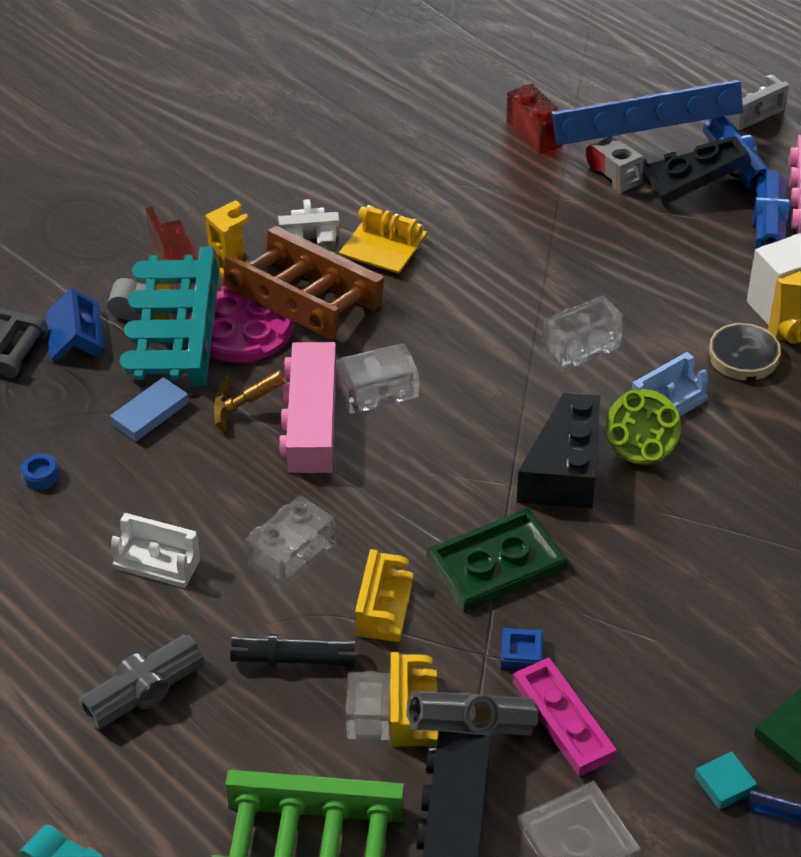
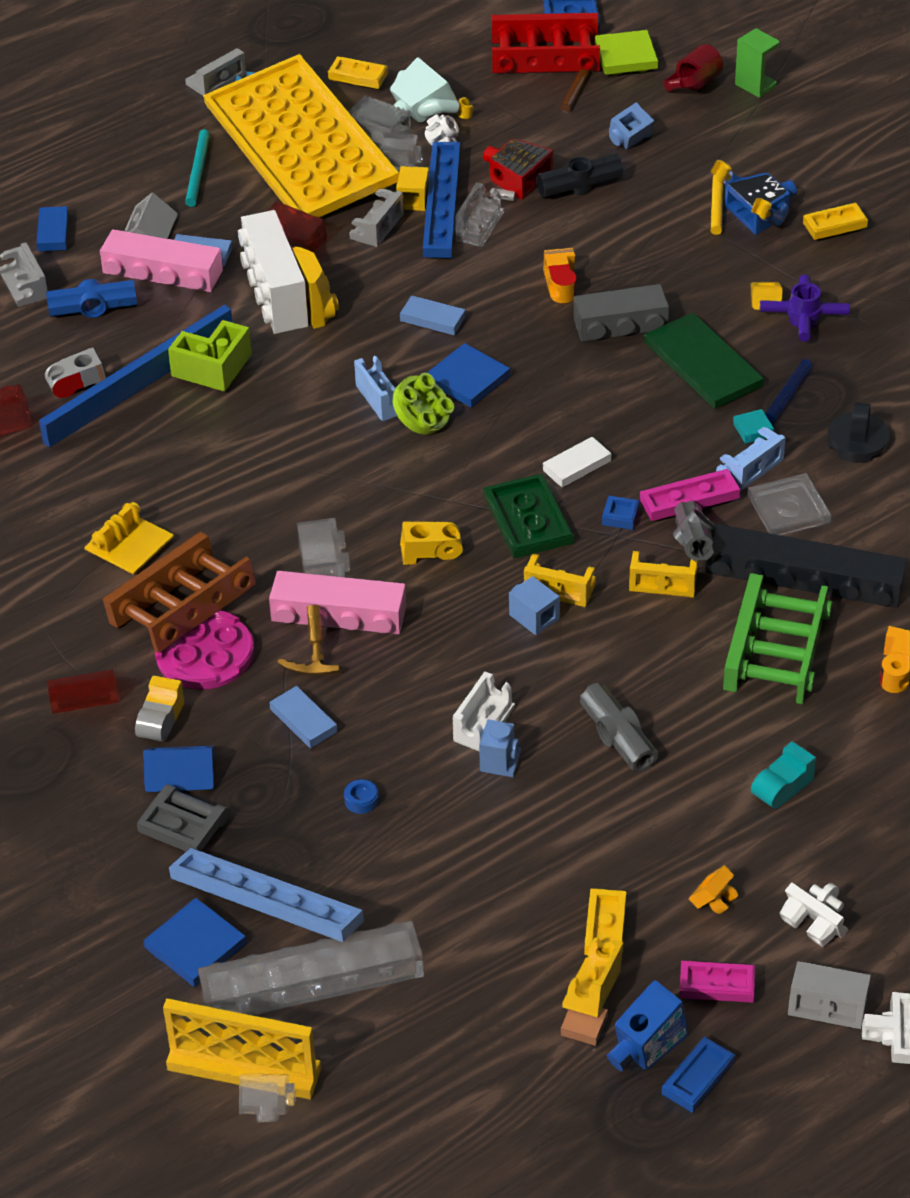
camera: 80 degrees left, 0 degrees up
(97, 570) = (499, 749): none -> medium blue brick
(194, 331) = (214, 658): teal fence -> none
(225, 232) = (116, 632): yellow hinge -> none
(290, 540) = (491, 627): clear brick -> none
(304, 651) = (601, 646): black pin -> none
(312, 224) = (85, 582): white hips -> none
(331, 575) = (534, 605): none -> medium blue brick
(368, 705) = (664, 595): clear brick -> none
(422, 468) = (430, 541): none -> yellow leg
(564, 456) = (435, 450): black wedge -> none
(582, 333) = (306, 421): clear brick -> none
(601, 594) = (577, 462): none -> white tile
(631, 205) = (121, 384): none -> blue tile
(647, 112) = (40, 331): blue plate -> none
(651, 783) = (755, 459): none -> light blue hinge
(665, 250) = (211, 360): none -> lime brick
(687, 172) = (113, 323): black wing -> none
(727, 471) = (469, 374): none -> blue tile
(744, 351) = (339, 342): black tile -> none
(770, 209) = (180, 293): blue piece -> none

